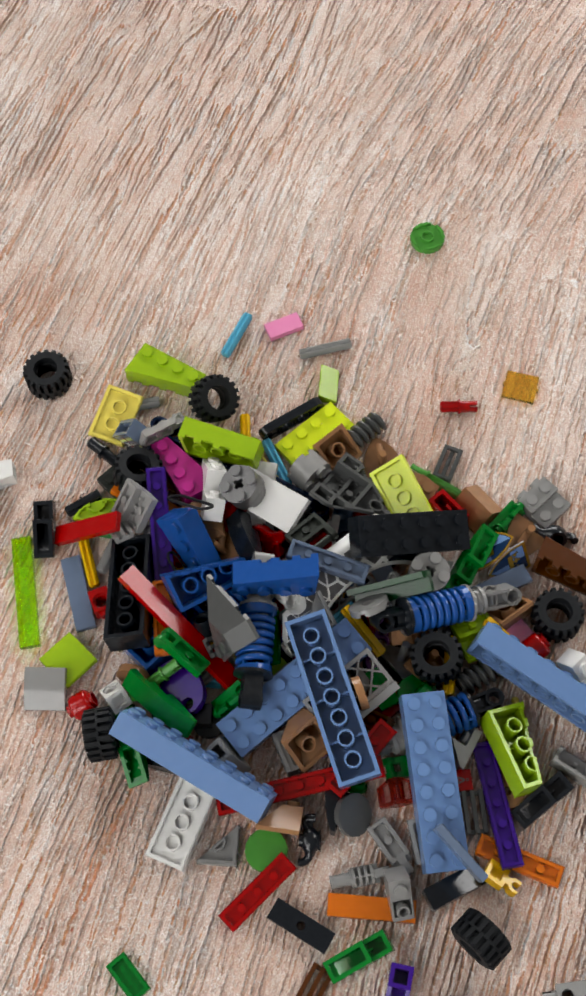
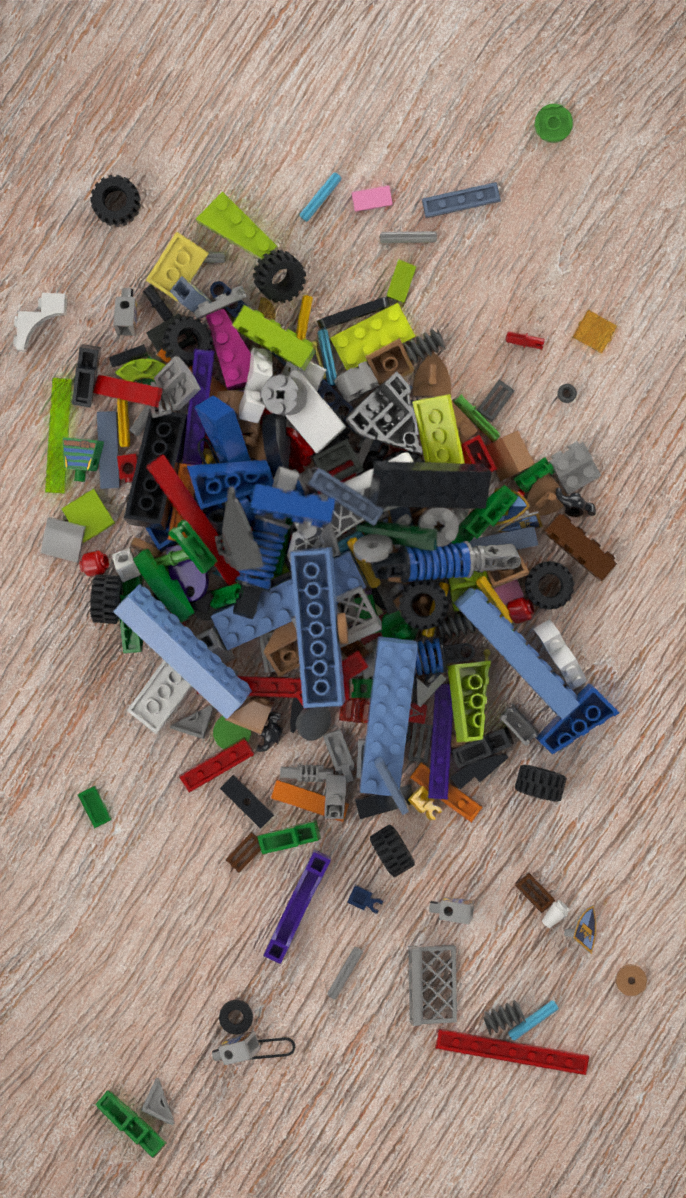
camera: 10 degrees right, 25 degrees up
(52, 601) = (82, 456): none -> torso
(71, 459) = (125, 313): none -> light grey torso
(190, 498) = (225, 404): black piece -> none
(364, 311) = (461, 200): none -> sand blue tile
(515, 438) = (569, 387): none -> dark grey plate
(545, 825) = (478, 769): none -> black slope

